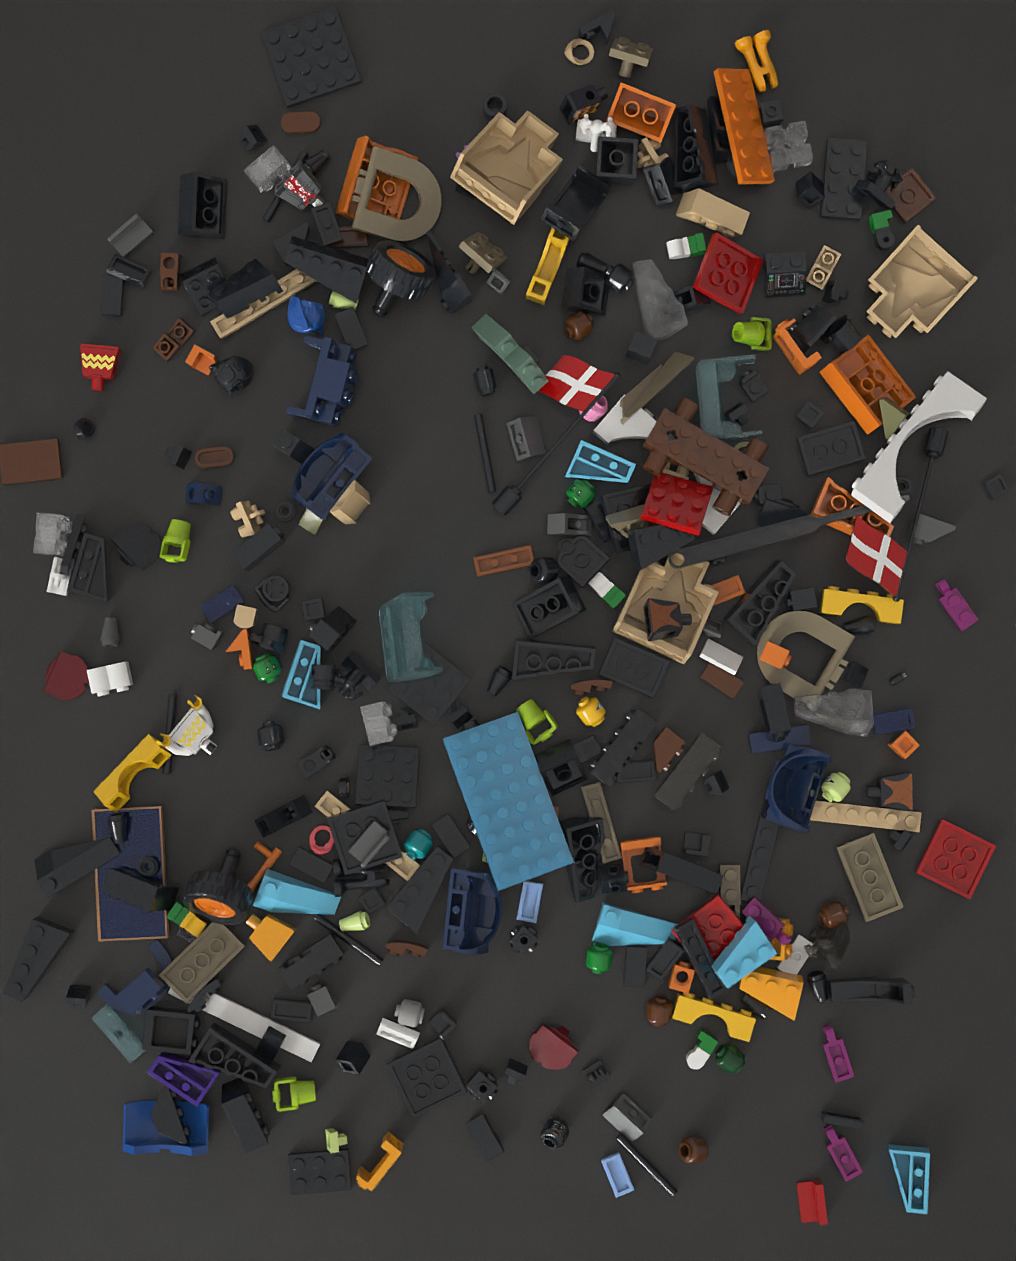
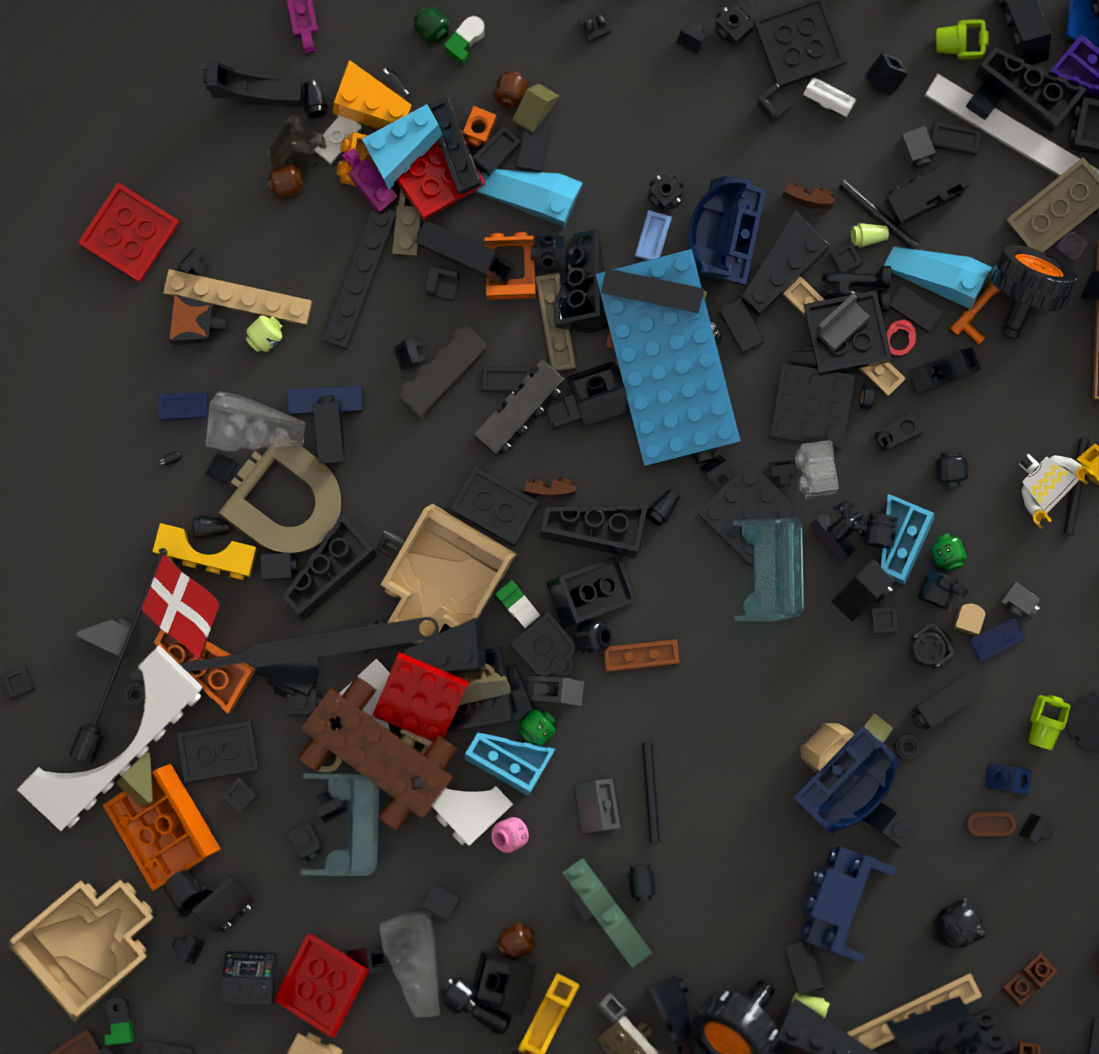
camera: 170 degrees left, 5 degrees down
(186, 919) = (1074, 257): leg -> none
(201, 359) = (996, 949): orange panel -> none
(201, 998) = (1064, 162): black slope -> none
(243, 644) = (974, 584): orange slope -> none
(250, 517) = (952, 741): tan hips -> none
(269, 934) = (974, 230): light orange torso -> none
(305, 315) = (860, 990): blue helmet -> none
(409, 1013) = (813, 118): light grey head -> none
(418, 844) = (783, 318): teal head -> none
(526, 852) = (652, 290): none -> black tile
(531, 716) = (627, 460): lime piece -> none
(552, 1047) = (644, 60): dark red piece -> none
(575, 386) = (530, 862): flag -> none
(590, 711) = (553, 457): yellow head -> none
(599, 958) = (576, 160): green head -> none
(638, 998) = (534, 107): none -> olive slope
(653, 384) = (431, 853): dark tan wedge -> none
(664, 619) = (451, 558): torso -> none
(665, 747) = (467, 403): reddish brown slope -> none
(686, 247) = (369, 1027): leg -> none
(688, 1009) = (472, 89): yellow arch -> none
(721, 656) = (385, 507): white tile -> none
(721, 680) = (388, 480): reddish brown tile -> none
(728, 589) = (367, 590): orange tile -> none
(754, 333) = (297, 906): lime piece -> none
(775, 655) = (319, 500): orange brick -> none
(791, 349) = (244, 861): orange window -> none
(795, 787) = (314, 335): dark blue piece -> none
(823, 267) = (199, 983): tan slope -> none
(869, 877) = (236, 222): dark tan plate -> none
(903, 745) = (174, 374): orange panel -> none
(956, 606) = (87, 539): magenta plate -> none

